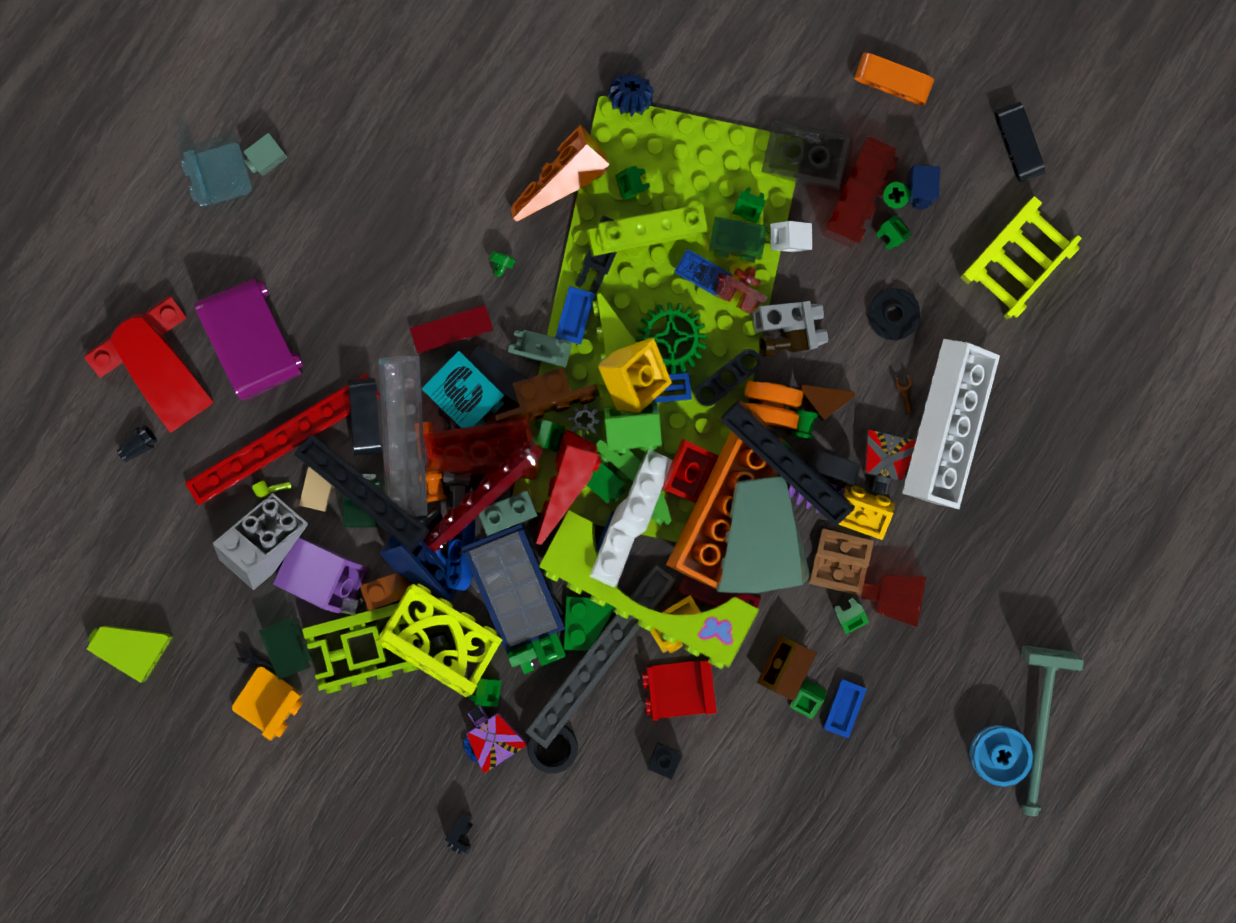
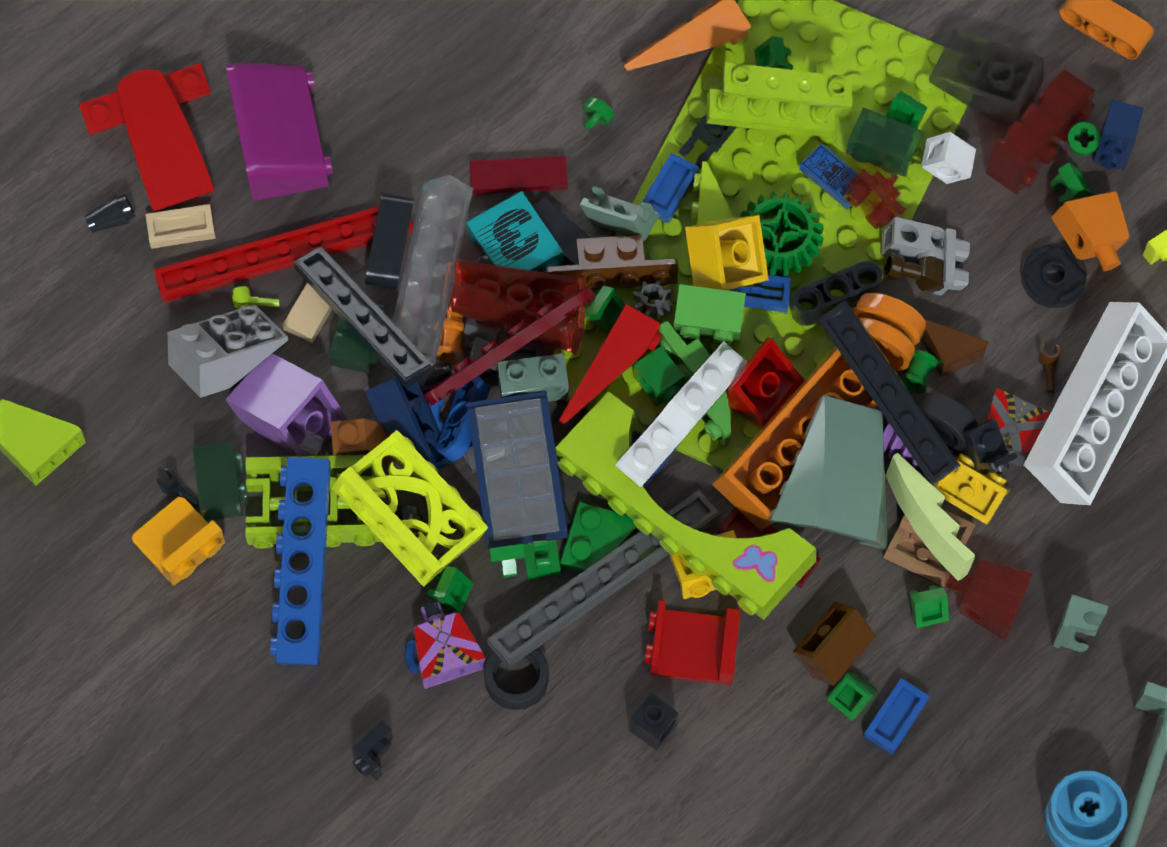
camera: 15 degrees right, 20 degrees down
(195, 438) = (180, 226): none -> tan tile
(360, 639) = (317, 475): none -> blue brick
(830, 542) = (922, 508): none -> yellowish green slope
(873, 485) = (988, 447): none -> black bracket
(919, 270) = (1094, 228): none -> orange torso
(964, 609) = (1079, 616): none -> sand green hinge

